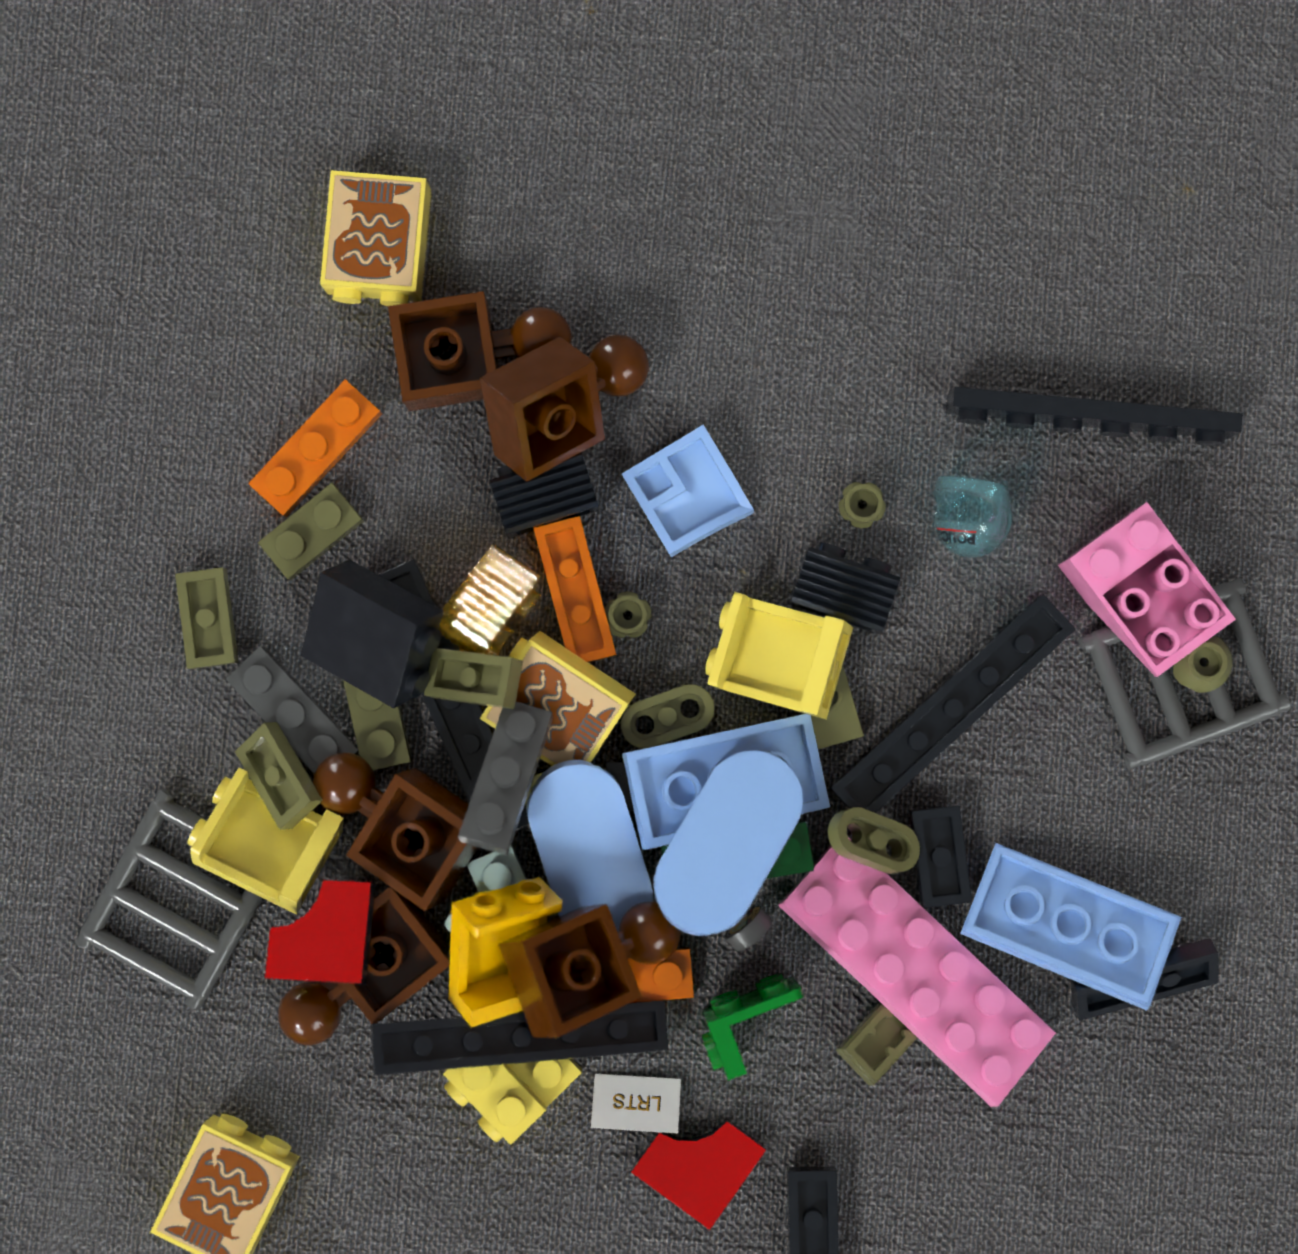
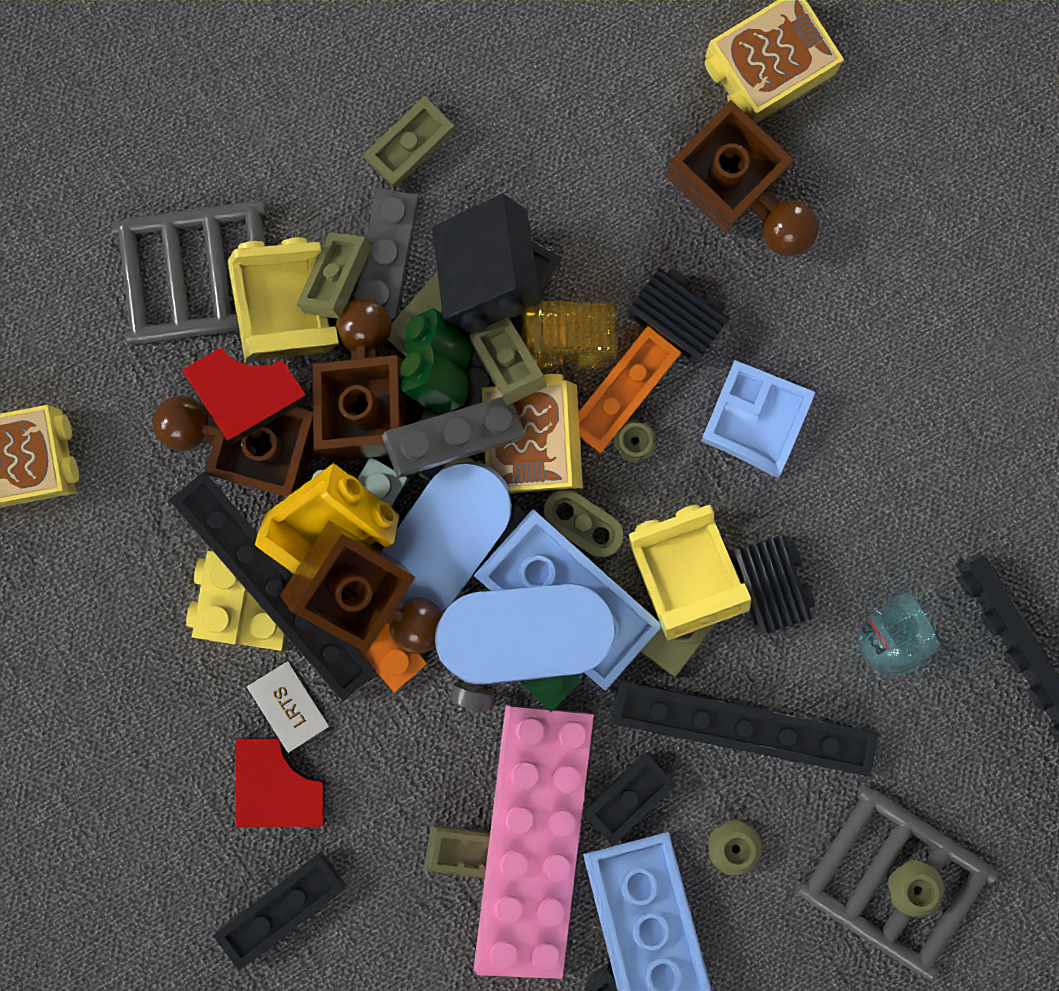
camera: 60 degrees right, 0 degrees up
(311, 531) = (526, 170): olive plate -> none
(315, 448) = (588, 129): orange plate -> none
(427, 743) = (435, 362): none -> dark green brick
(549, 400) = (748, 266): reddish brown brick -> none
(731, 1008) = (406, 726): green bracket -> none
(869, 840) = (604, 736): olive plate -> none
(874, 508) = (854, 555): olive plate -> none
(1037, 798) = (730, 834): none -> olive plate
(1147, 590) = (939, 809): bright pink slope -> none

